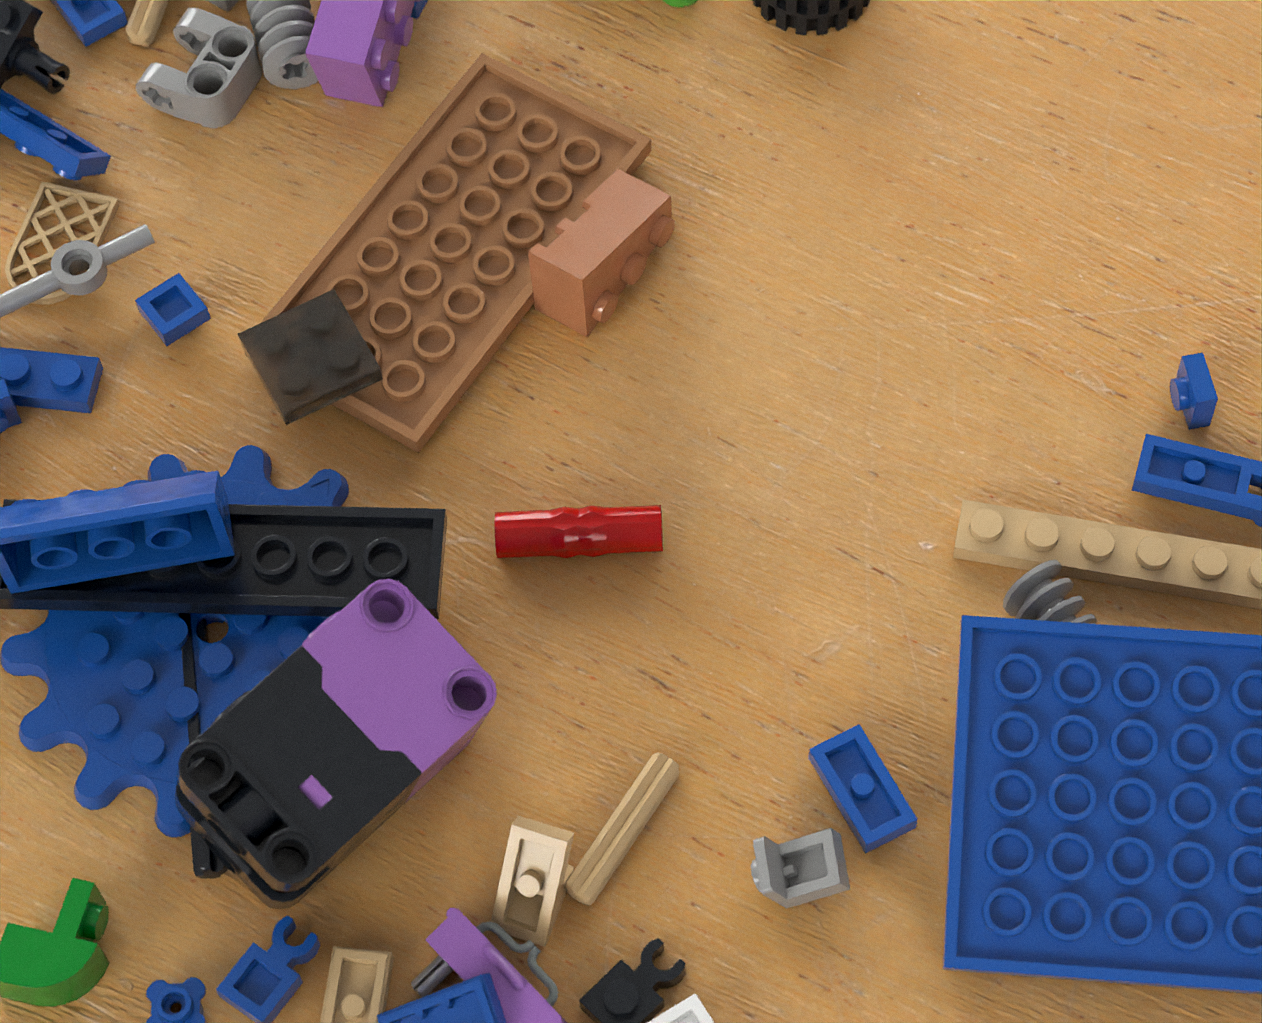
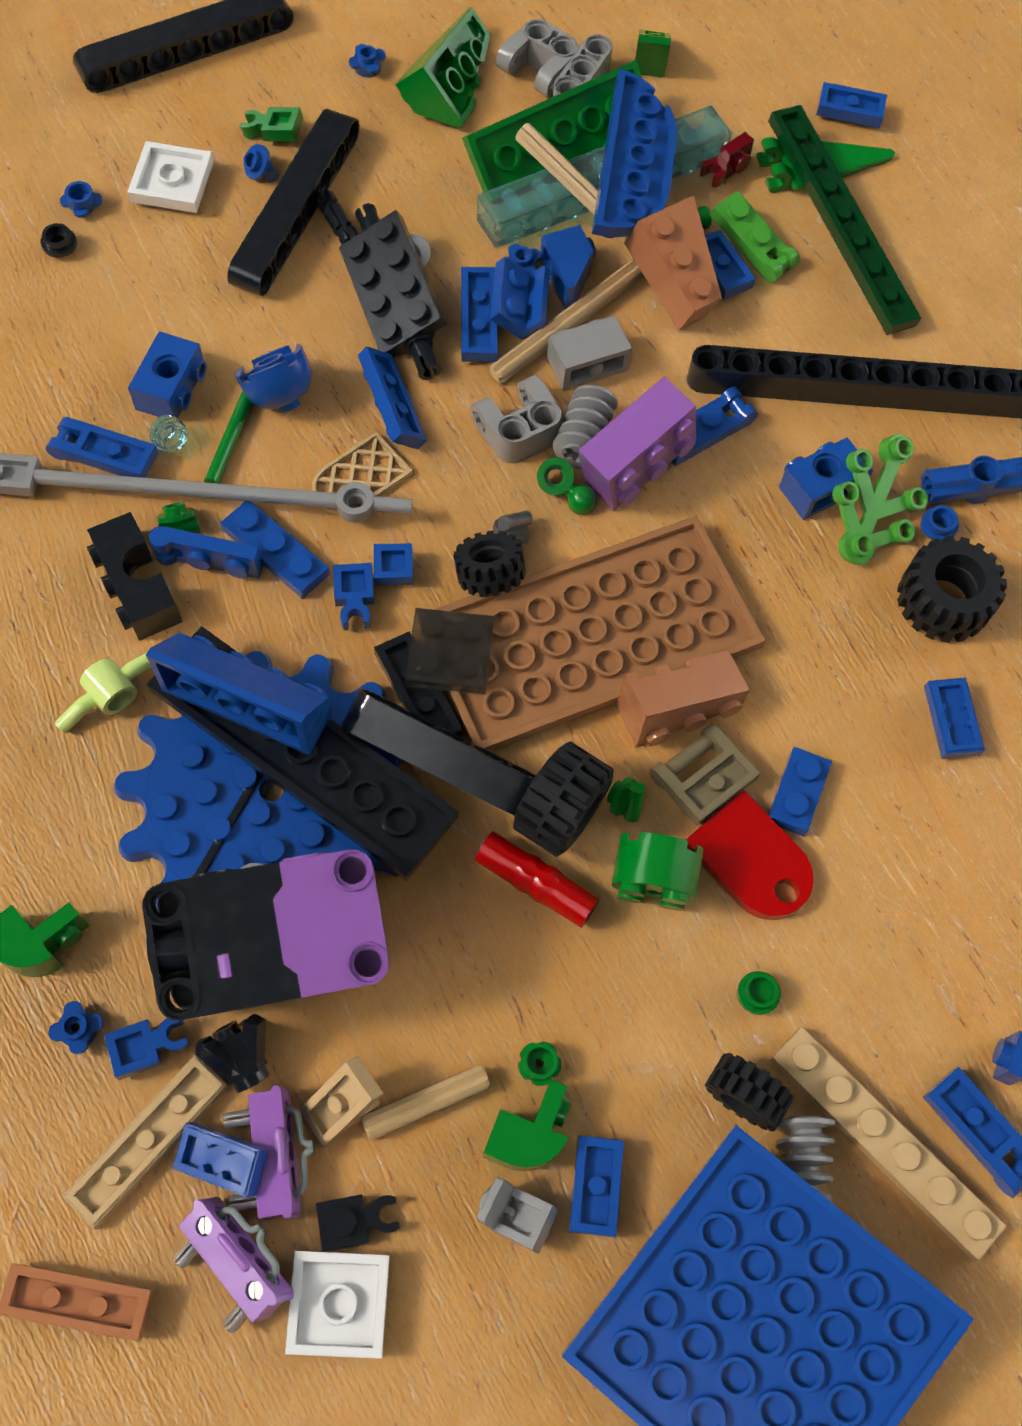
camera: 25 degrees right, 5 degrees up
(147, 363) = (354, 591): none -> blue plate
(281, 189) = (515, 524): none -> flat silver plate
(286, 239) = (489, 563): none -> black tyre
(323, 436) = (422, 701): none -> black plate
(336, 113) = (580, 498): none -> green plate
(377, 464) = (437, 751): none -> black beam
(380, 907) = (237, 1052): none -> black rock
(550, 425) = (563, 798): none -> black tyre
(618, 390) = (626, 799): none -> green plate
(698, 319) = (713, 783): none -> dark tan plate
(702, 436) = (657, 869): none -> green brick
(715, 697) = (544, 1052): none -> green plate
(760, 794) = (529, 1144): none -> green brick
(793, 370) = (751, 856): none -> red tile
(795, 272) = (799, 791): none -> blue plate
(895, 496) = (758, 993): none -> green plate
(905, 98) = (954, 718): none -> blue plate
(952, 585) = (749, 1091): none -> black tyre

